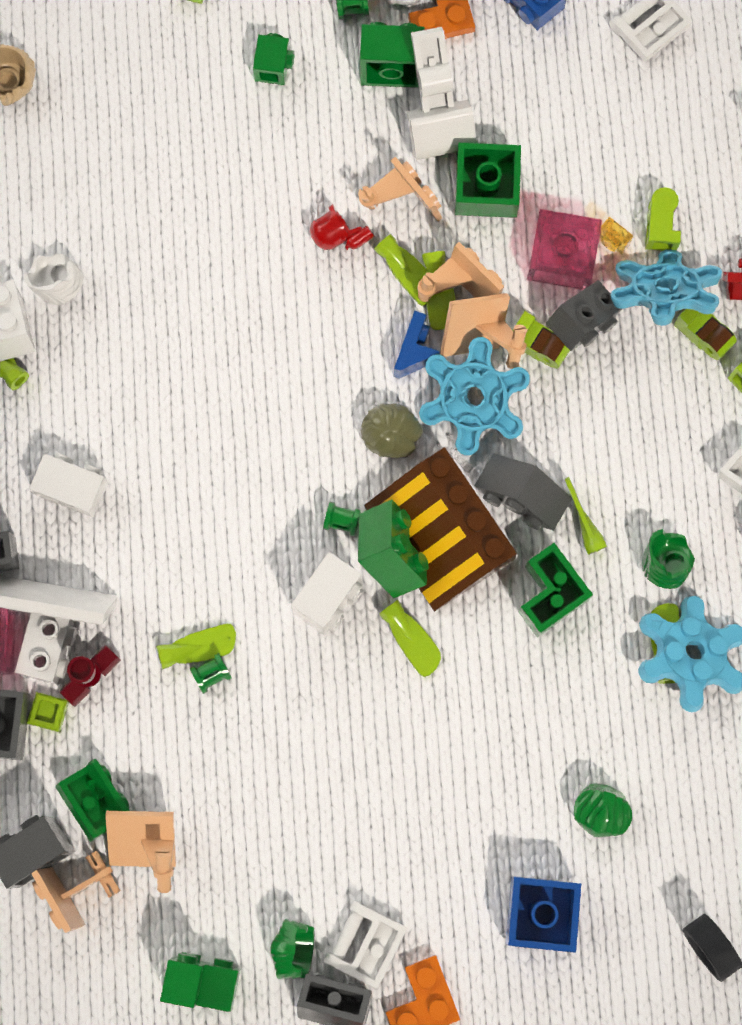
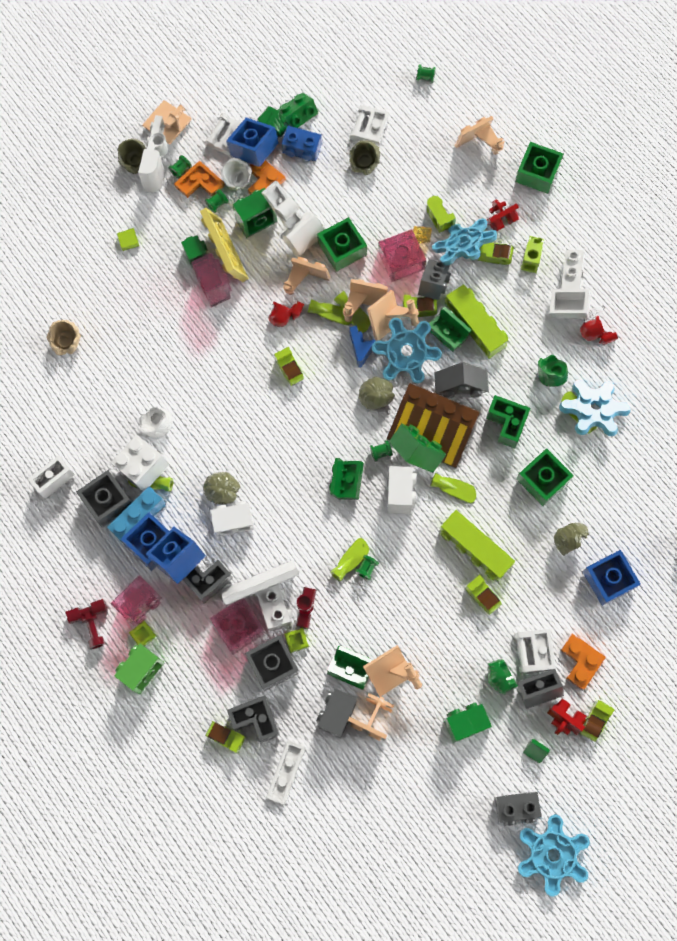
camera: 30 degrees left, 5 degrees down
(83, 430) = (221, 488): none -> olive hair
(265, 118) = (212, 279): none -> clear pink brick
(265, 528) = (346, 479): none -> green bracket
(294, 313) = (288, 366): none -> lime leg
(316, 77) = (224, 245): none -> light yellow plate
(347, 819) = (483, 595): none -> lime leg
(385, 743) = (476, 545): none -> lime brick
(522, 816) = (569, 537): none -> olive hair
(547, 707) = (544, 477): none -> green brick
(558, 403) = (449, 329): none -> green bracket
(592, 538) = (508, 383): lime piece -> none
(602, 811) = (604, 511): green hair -> none
(607, 415) = (473, 313): none -> lime brick
(609, 67) = (364, 157): none -> olive hair

